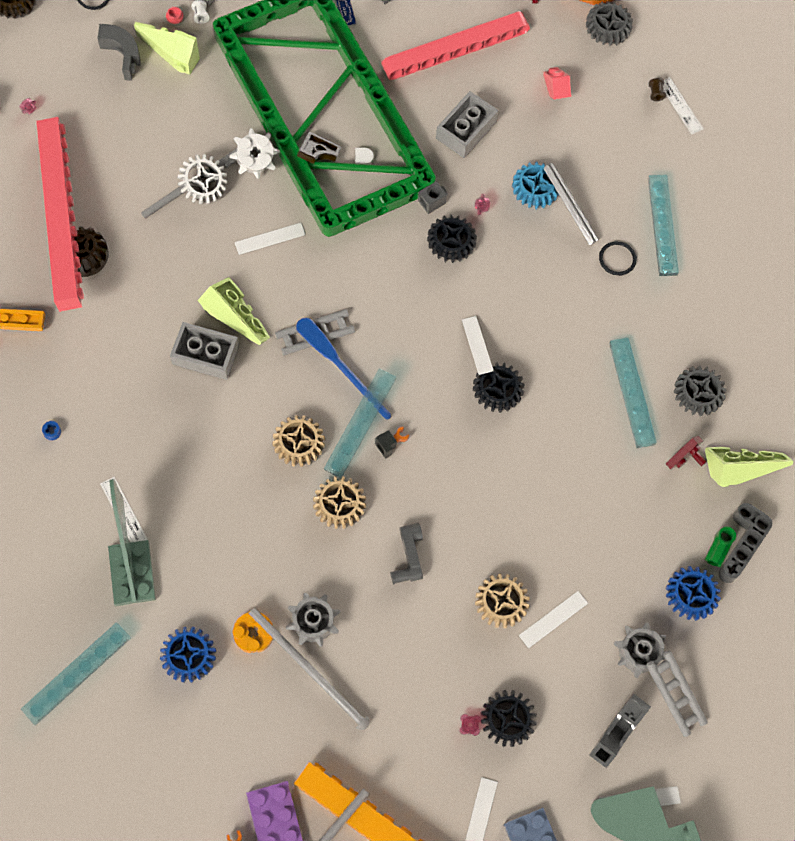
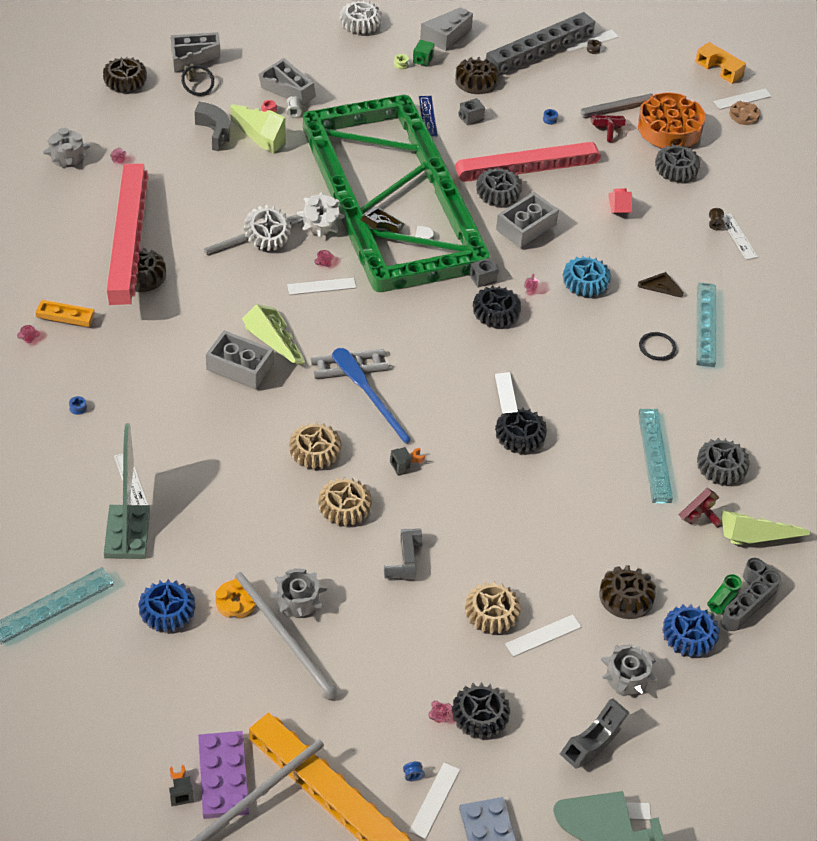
camera: 10 degrees right, 20 degrees down
(266, 200) = (324, 258): none -> clear pink plate
(360, 423) = (378, 438): clear light blue plate -> none
(431, 84) = (499, 187): none -> dark grey gear
(455, 796) = (413, 771): none -> blue bush
(571, 203) = (617, 293): axle -> none
(612, 180) = (661, 283): none -> dark brown tile
(618, 571) = (625, 601): none -> dark brown gear
(665, 689) = (671, 719): light grey bar -> none

